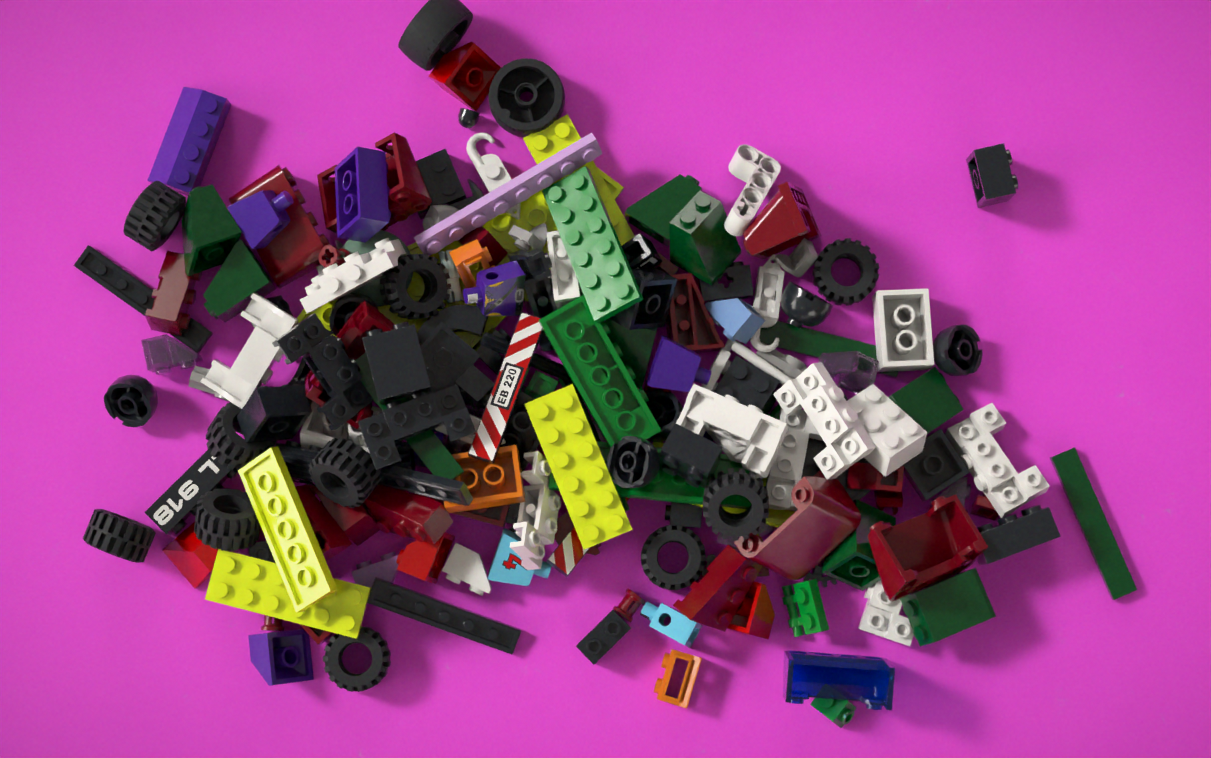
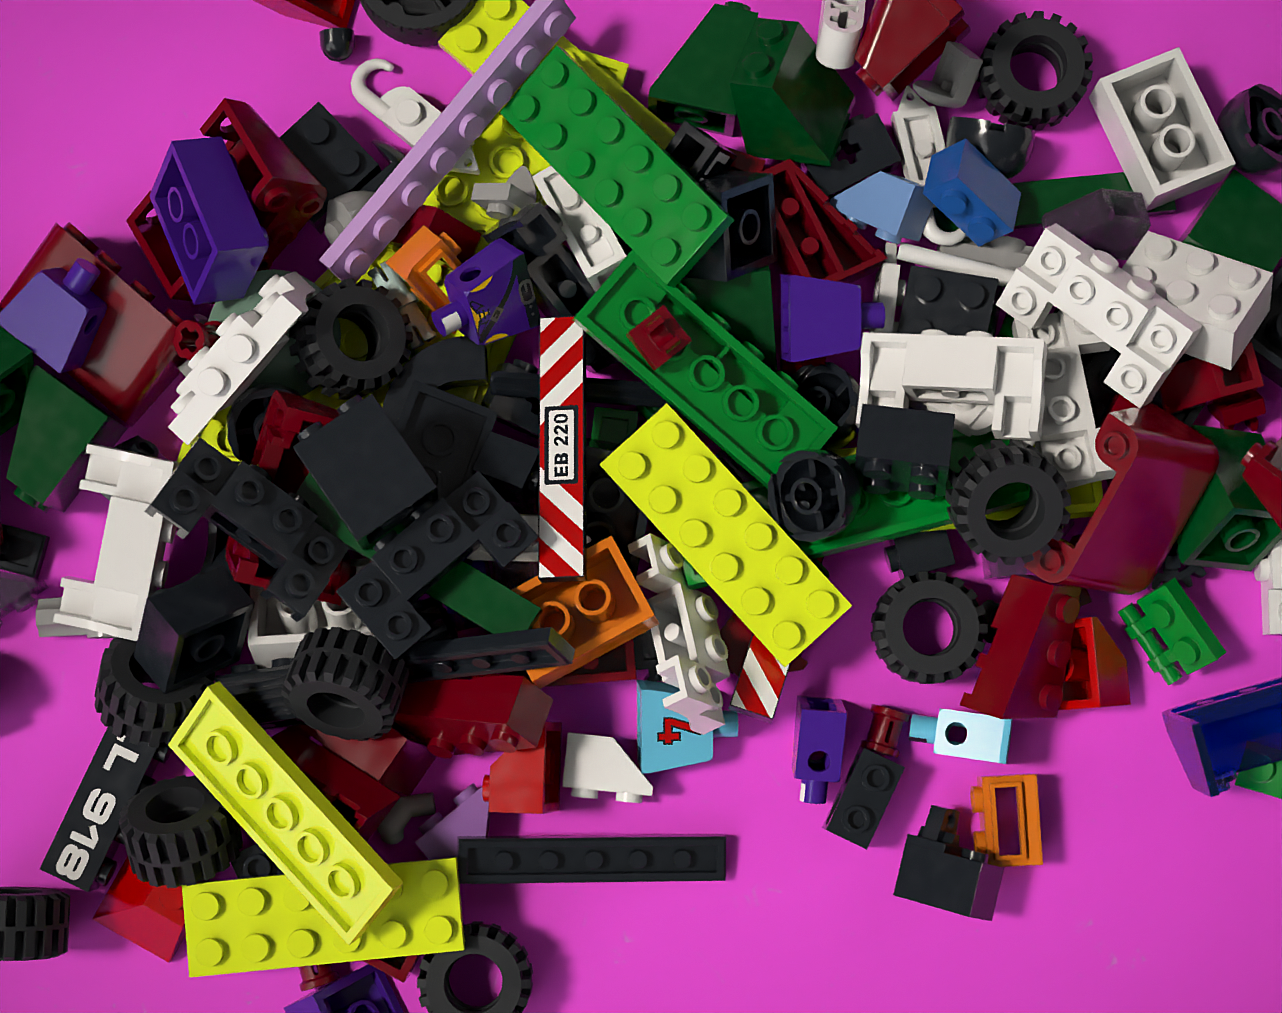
camera: 20 degrees left, 0 degrees up
(351, 552) = (408, 806): none -> light grey arm
(580, 347) = (658, 337): none -> dark red tile
(592, 591) = (818, 727): none -> dark purple torso
(632, 694) = (943, 873): none -> black hinge
(783, 328) = (972, 192): none -> blue brick

